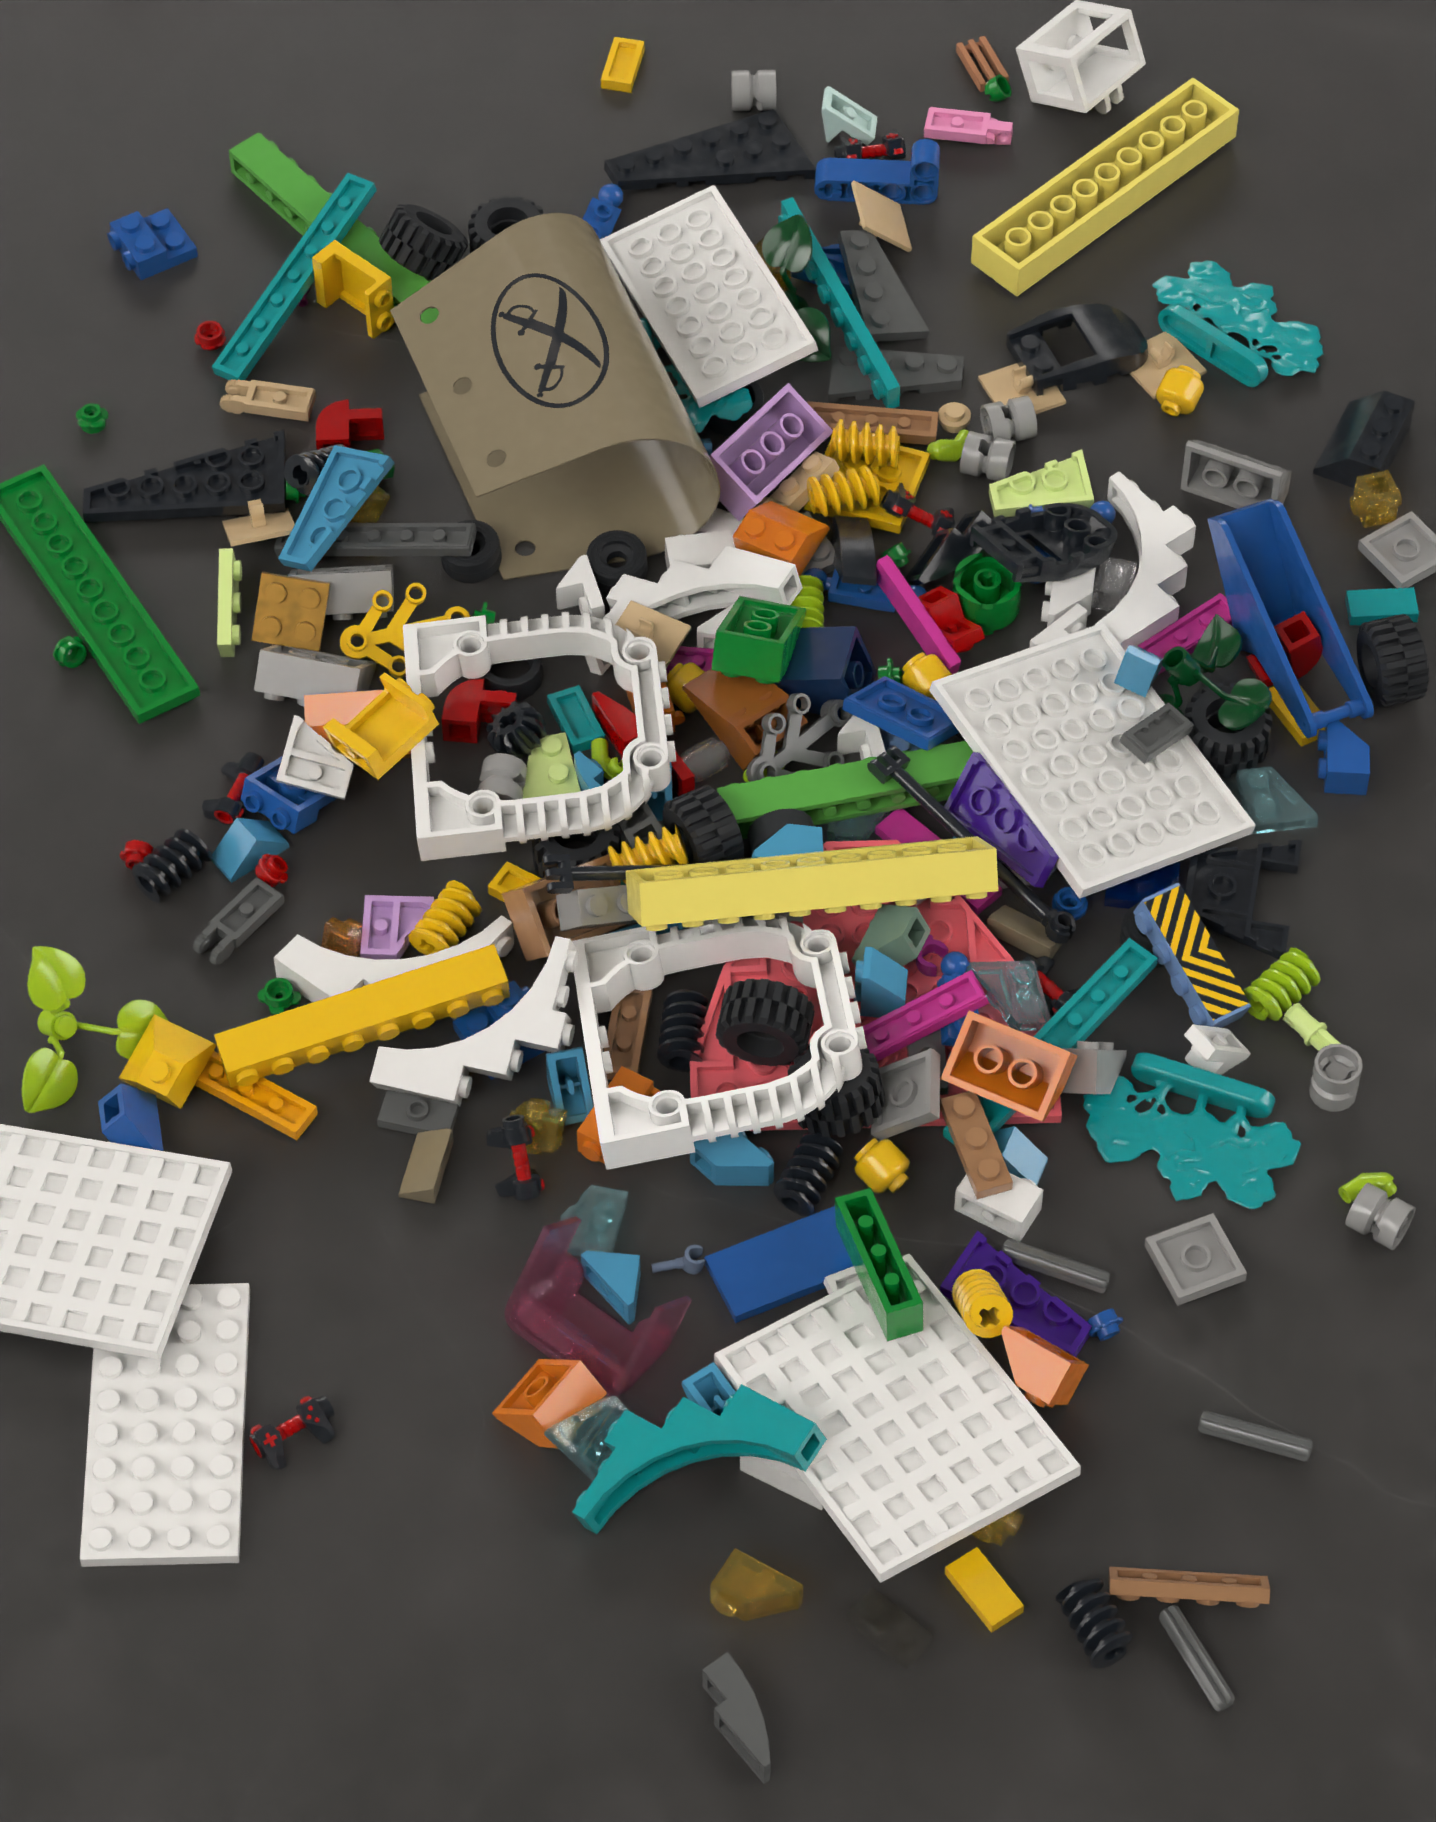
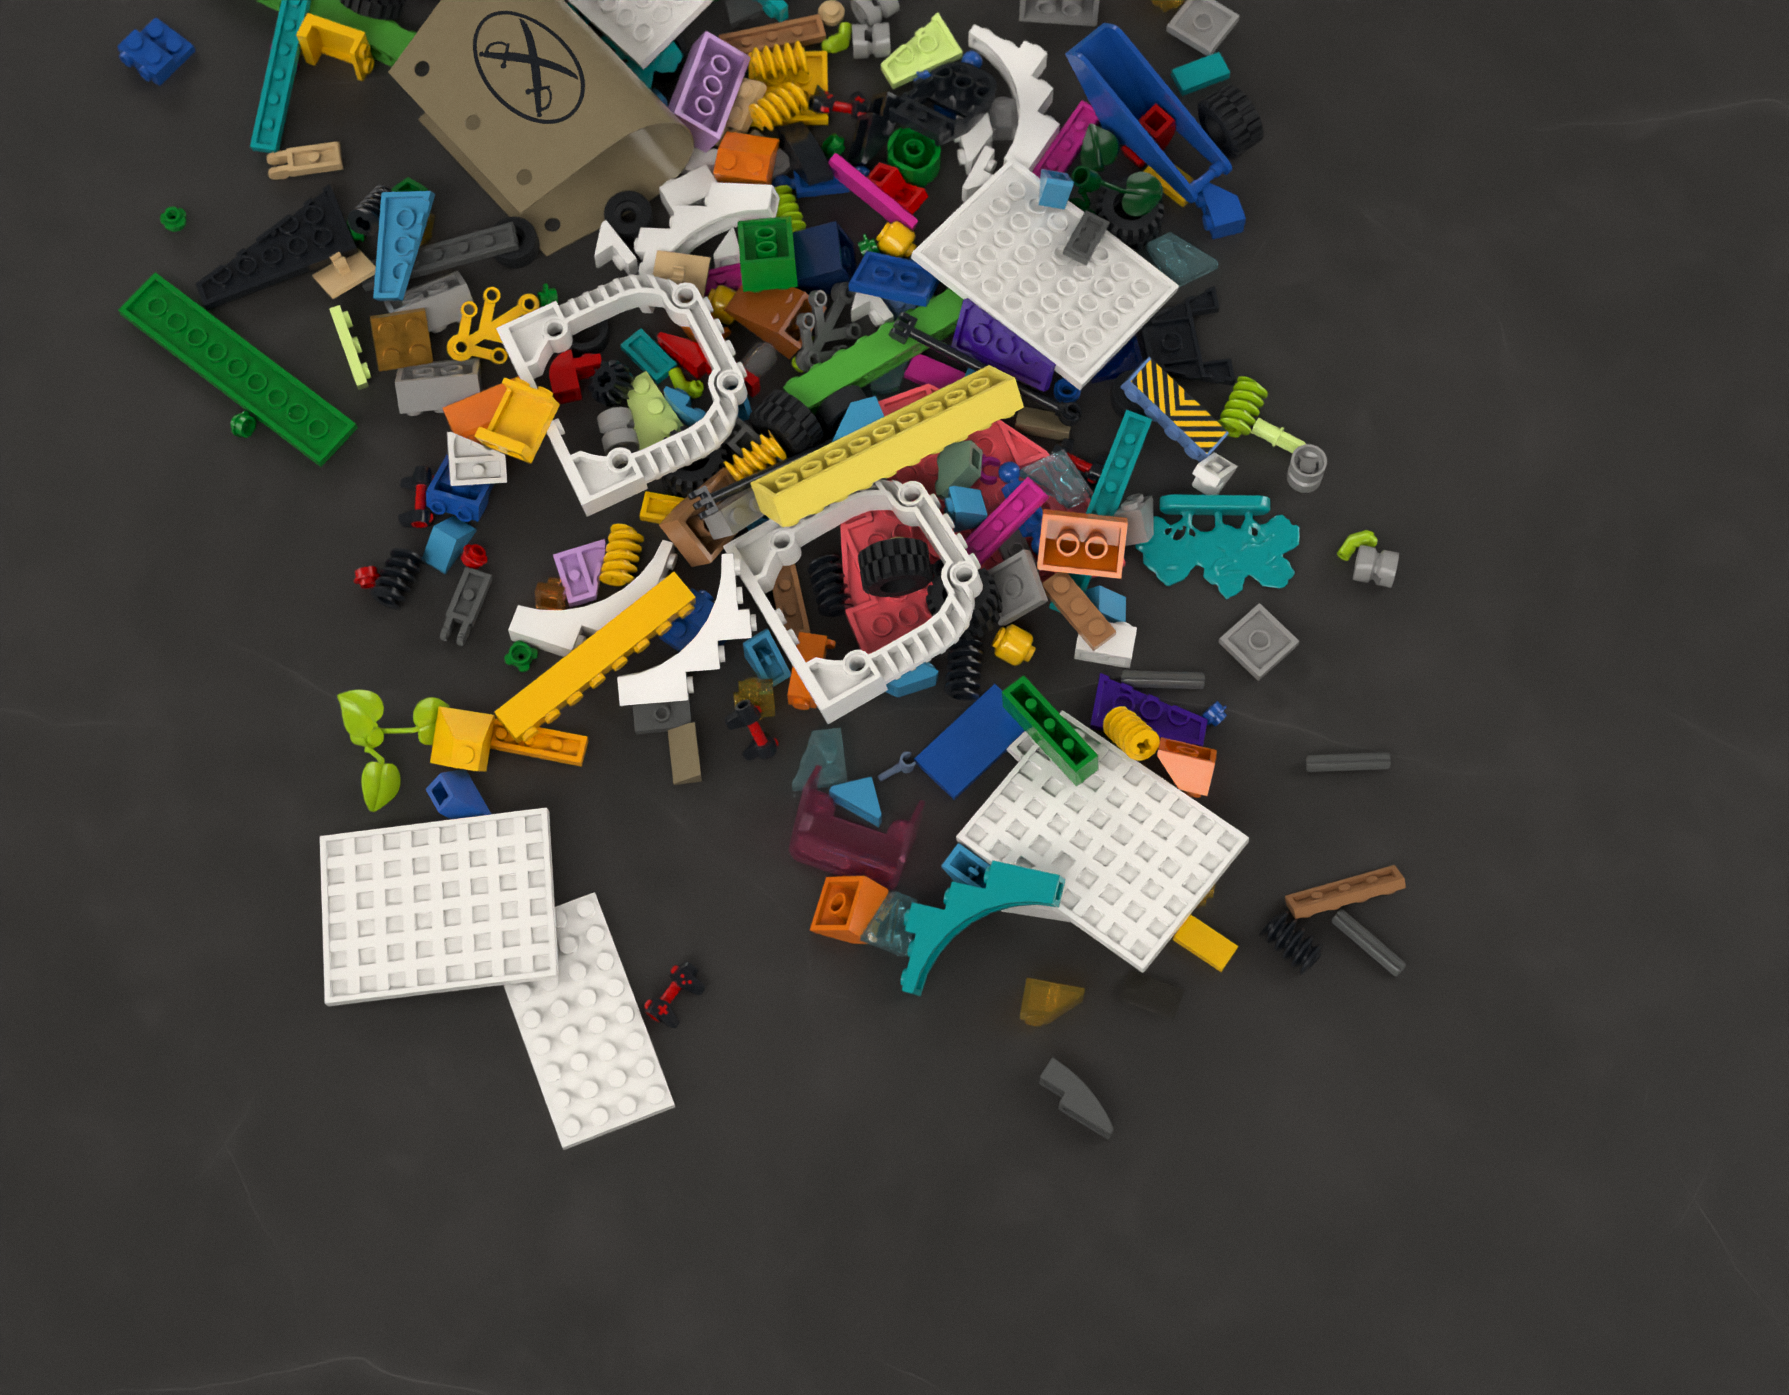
camera: 20 degrees left, 15 degrees up
(210, 335) = (234, 114): red plate -> none
(342, 425) = (371, 166): red brick -> none

